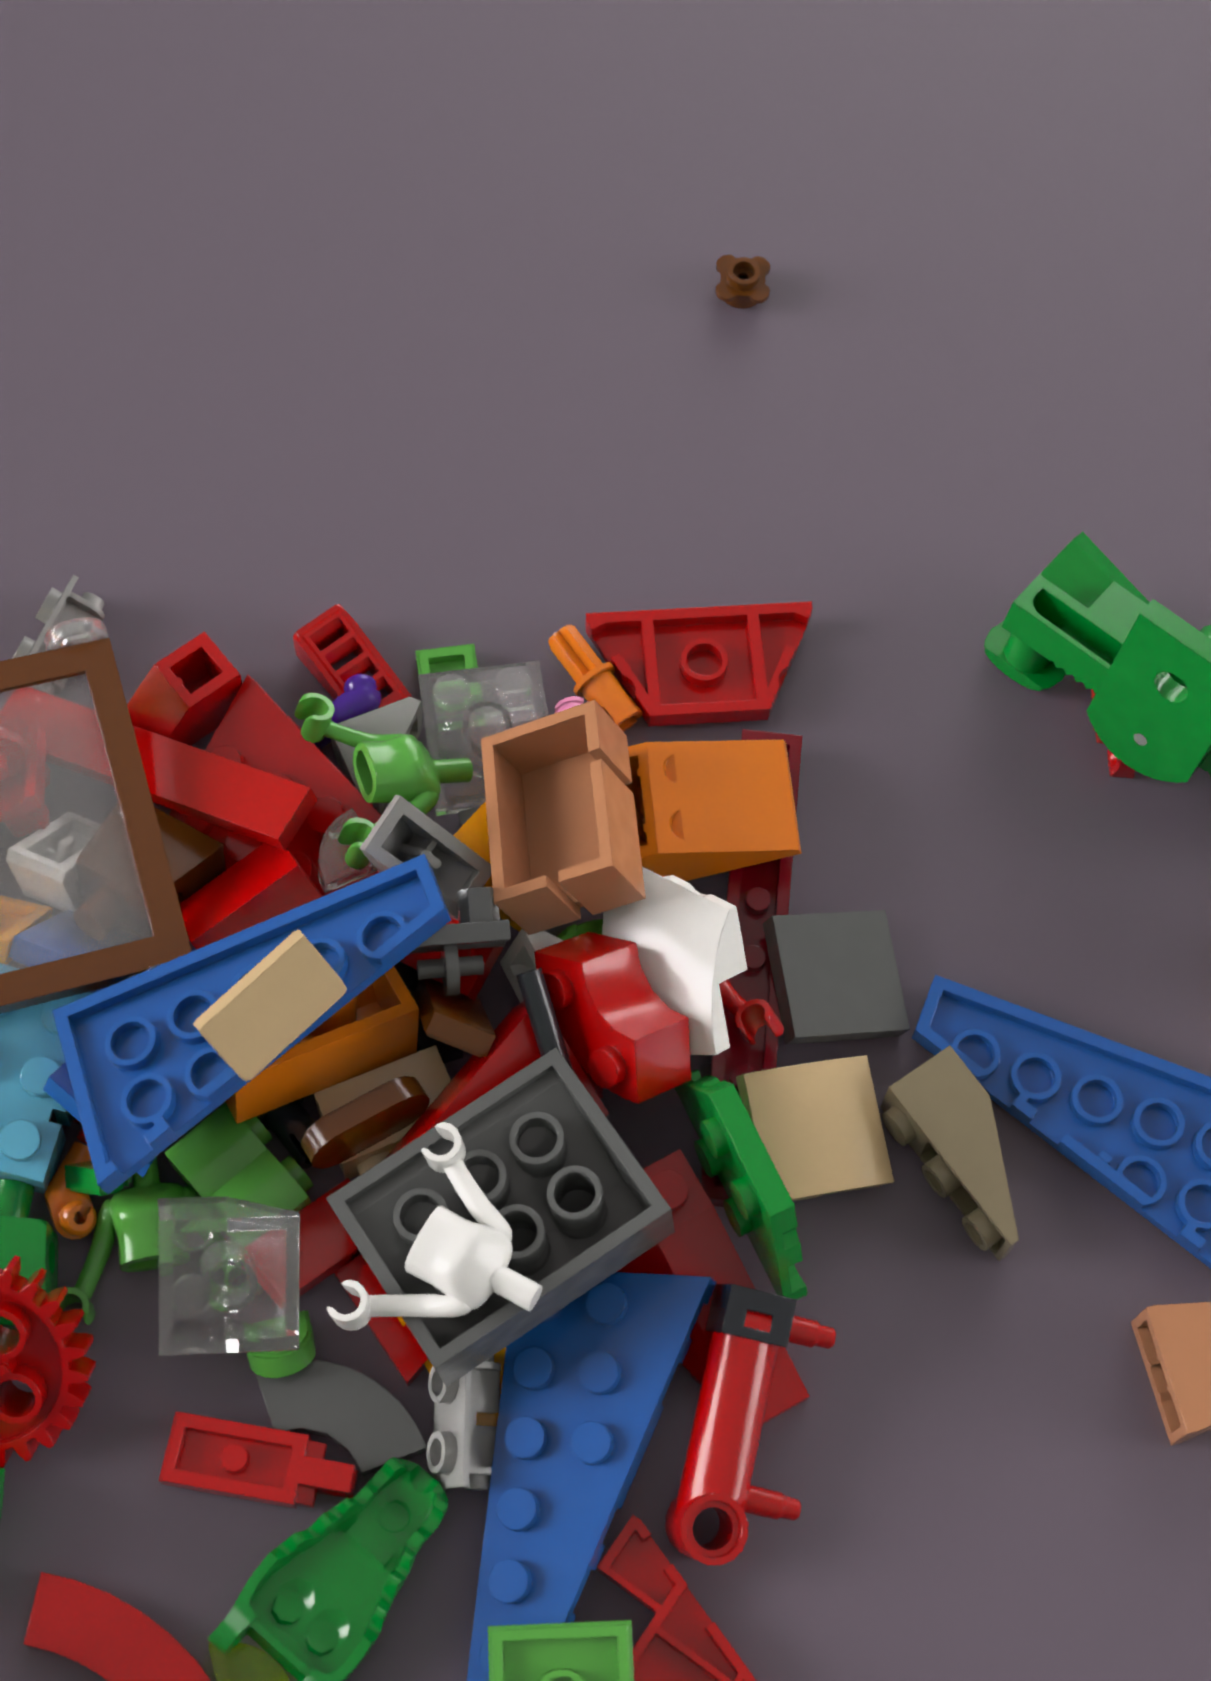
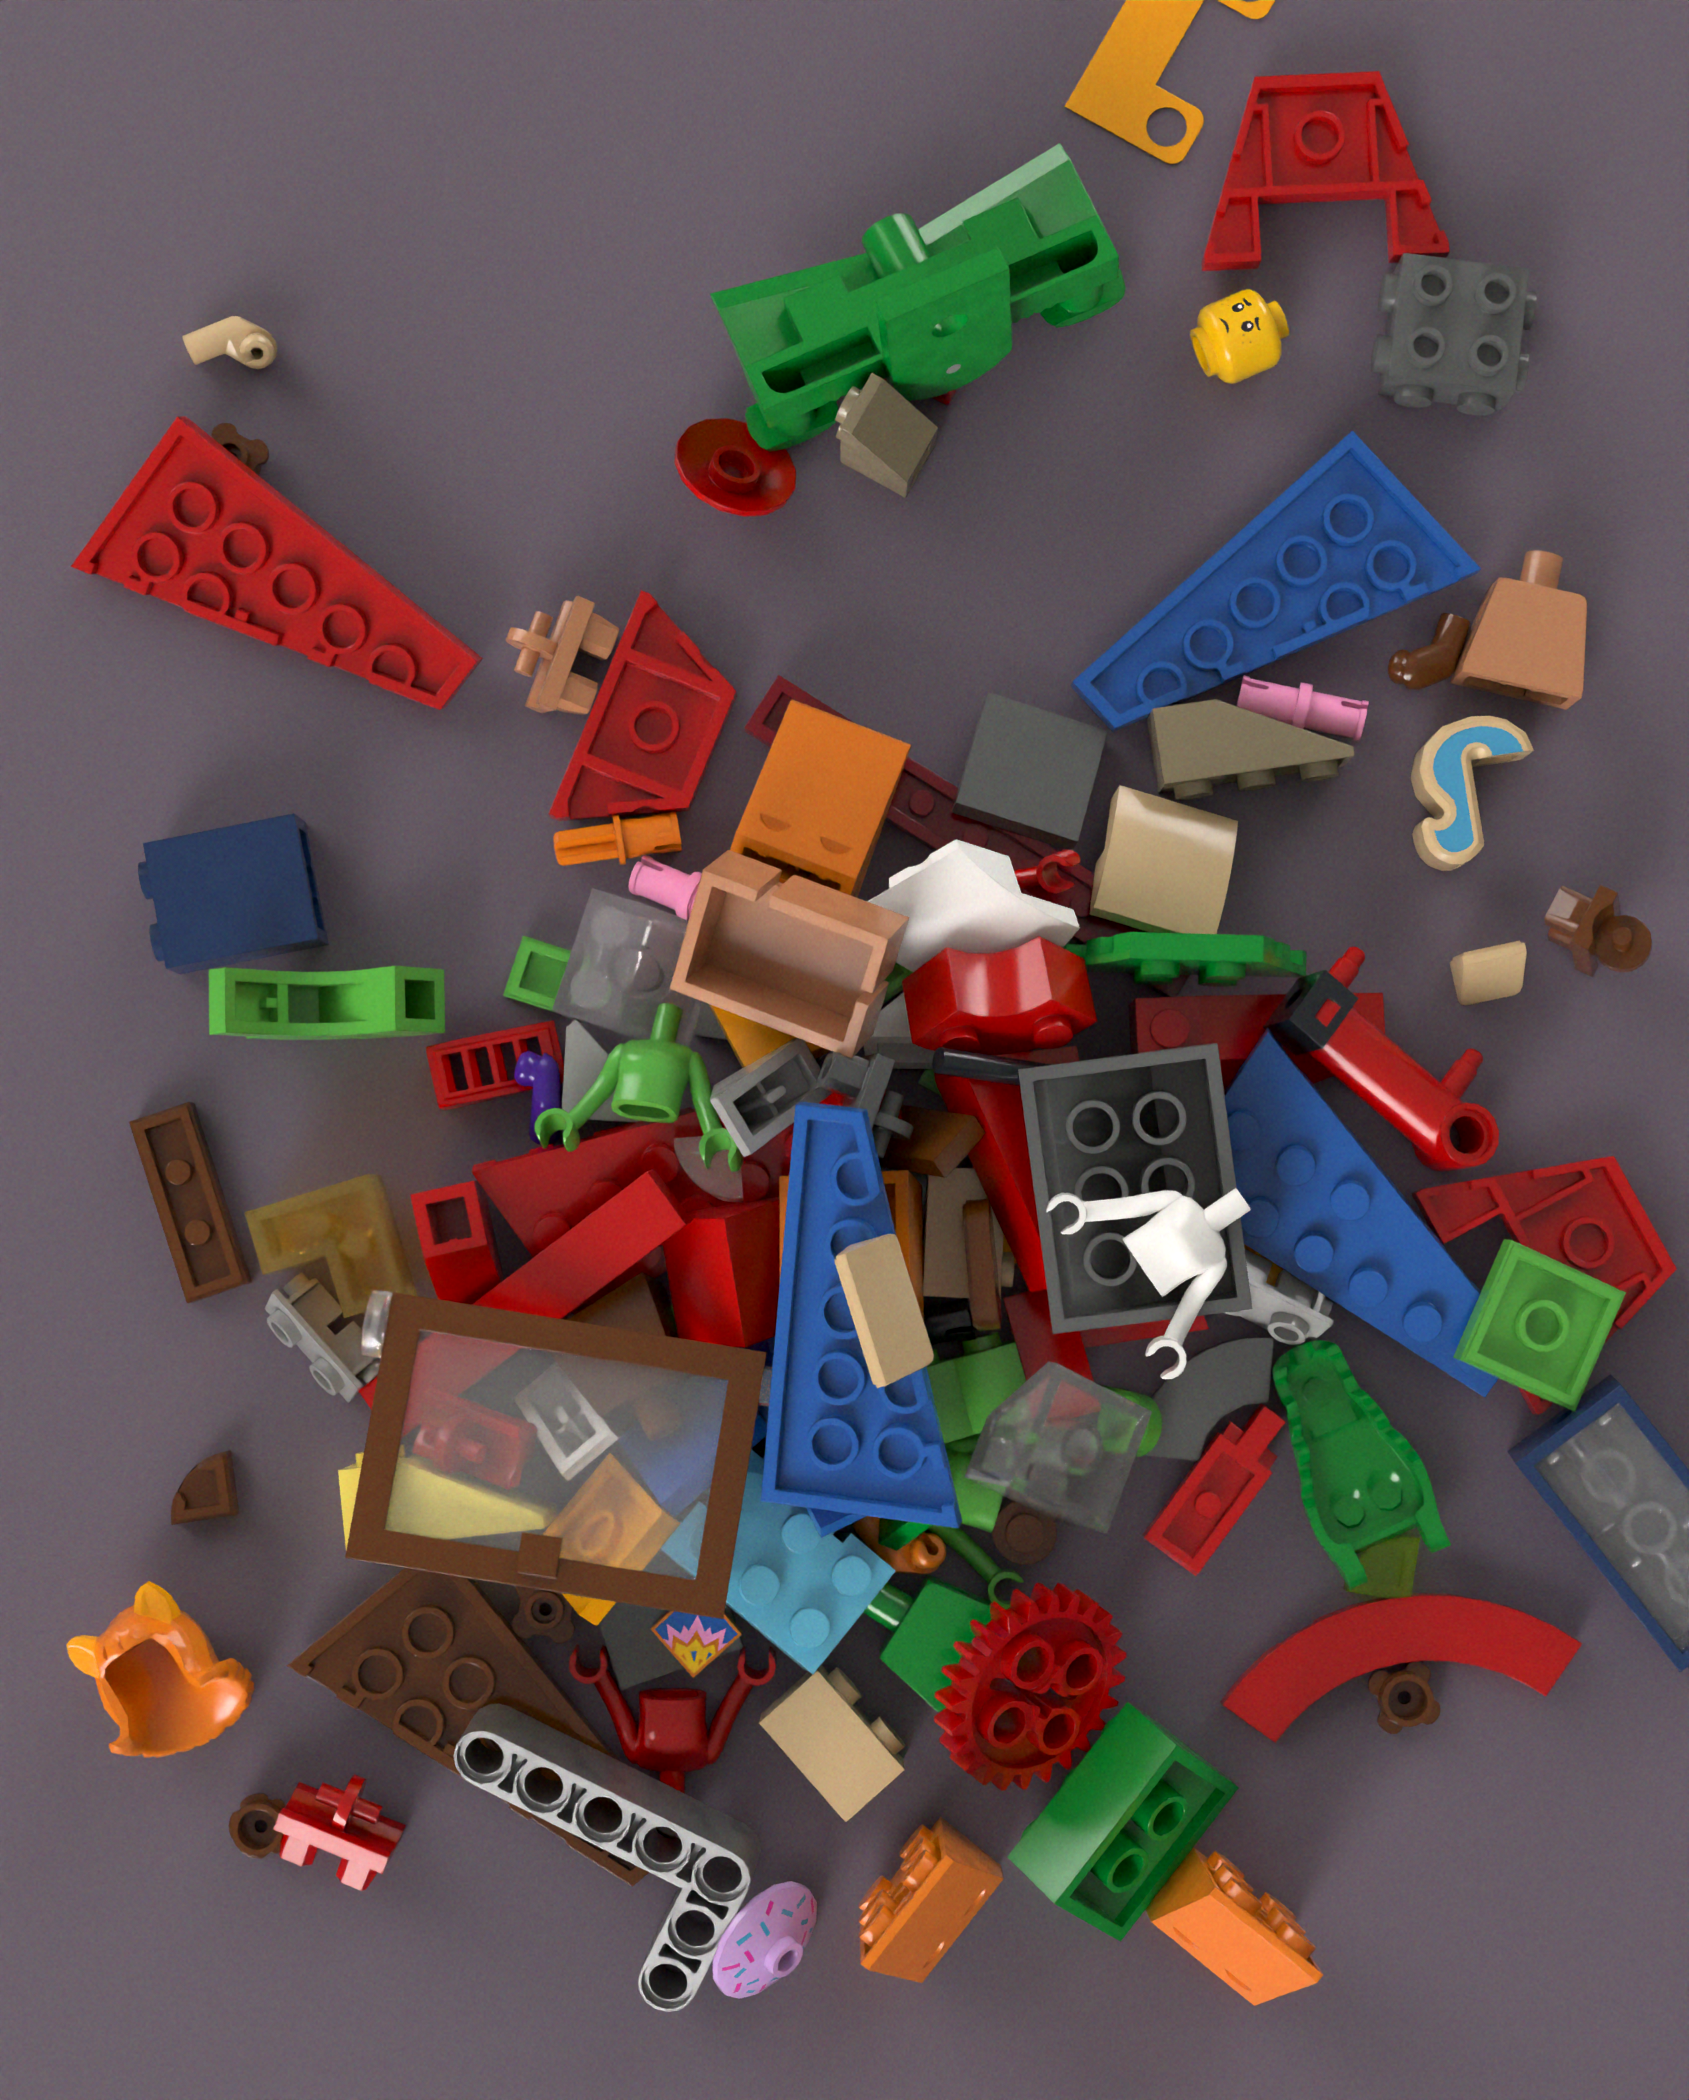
camera: 55 degrees left, 20 degrees up
(125, 501) = (190, 1202): none -> reddish brown tile
(130, 1301) = (1023, 1534): none -> reddish brown plate
(149, 598) = (340, 1223): none -> clear yellow brick
(340, 526) = (326, 1004): none -> bright green arch
(396, 421) = (233, 894): none -> dark blue brick
(669, 324) = (247, 558): none -> red wing
(749, 568) = (574, 631): none -> nougat hips
(837, 242) = (235, 338): none -> tan arm
(882, 1486) = (1489, 972): none -> tan slope
(951, 625) = (731, 470): none -> red dish
(978, 1560) = (1597, 929): none -> reddish brown hips
(1030, 1192) = (1304, 707): none -> bright pink pin
(1038, 1348) = (1446, 785): none -> tan animal
(1052, 721) = (884, 435): none -> dark tan slope
(1137, 1288) = (1432, 662): none -> reddish brown arm

